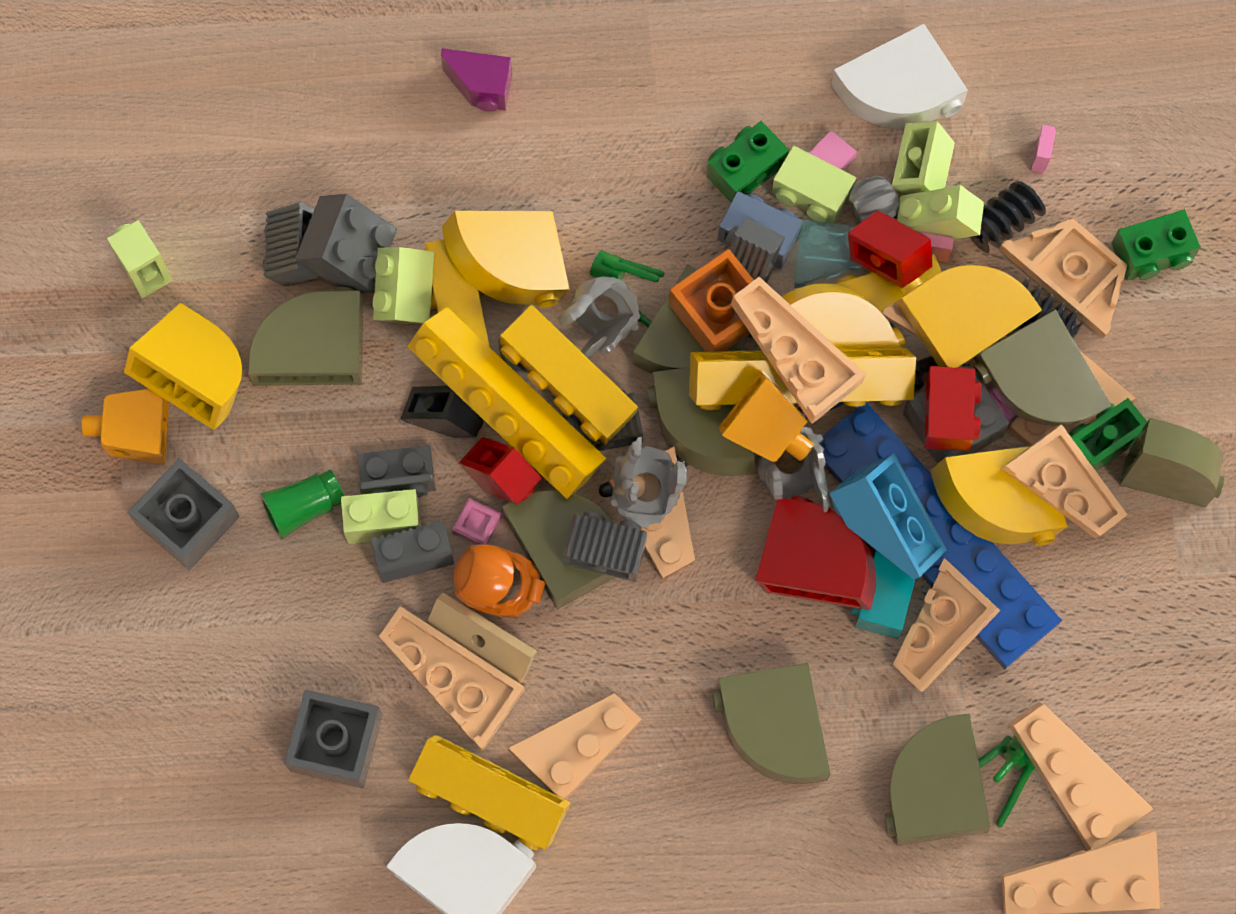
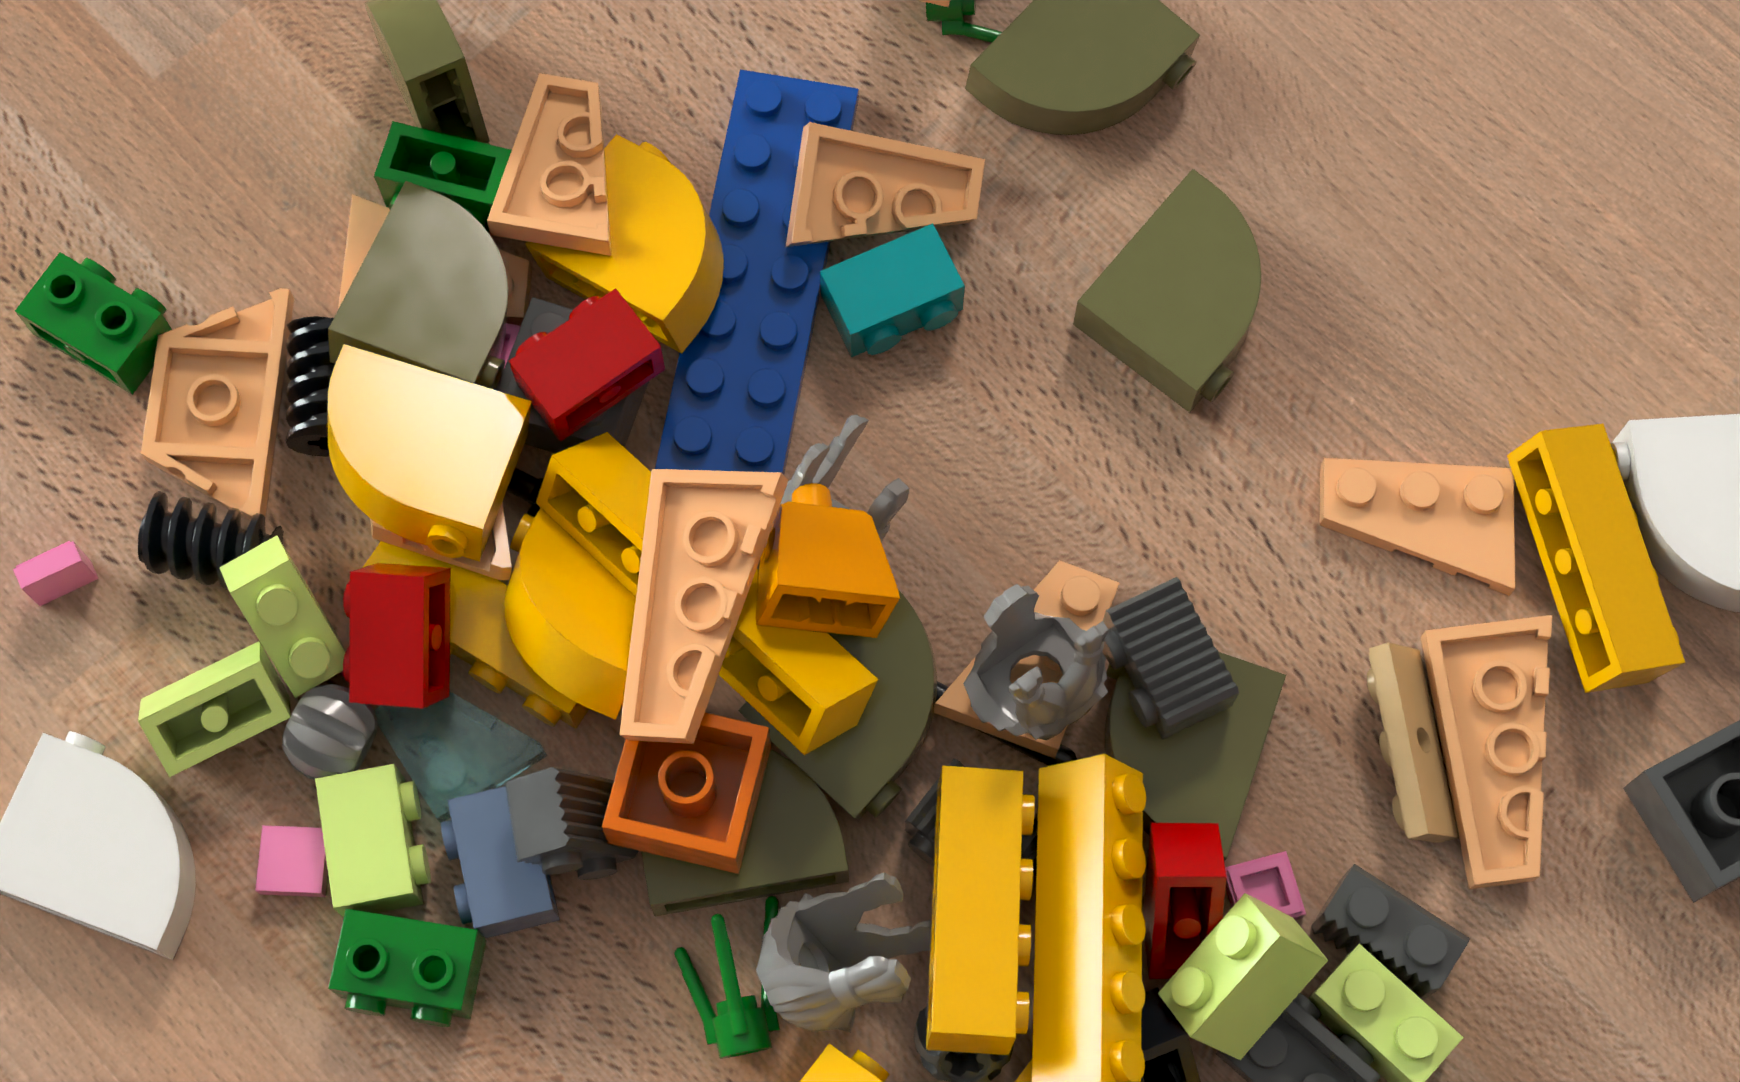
camera: 130 degrees left, 0 degrees up
(447, 463) = (1242, 977): none -> yellowish green brick
(486, 575) = (1345, 783): orange helmet -> none
(816, 557) = (927, 396): red brick -> none
(888, 515) = (802, 339): dark azure slope -> none
(941, 246) = (330, 599): bright pink tile -> none

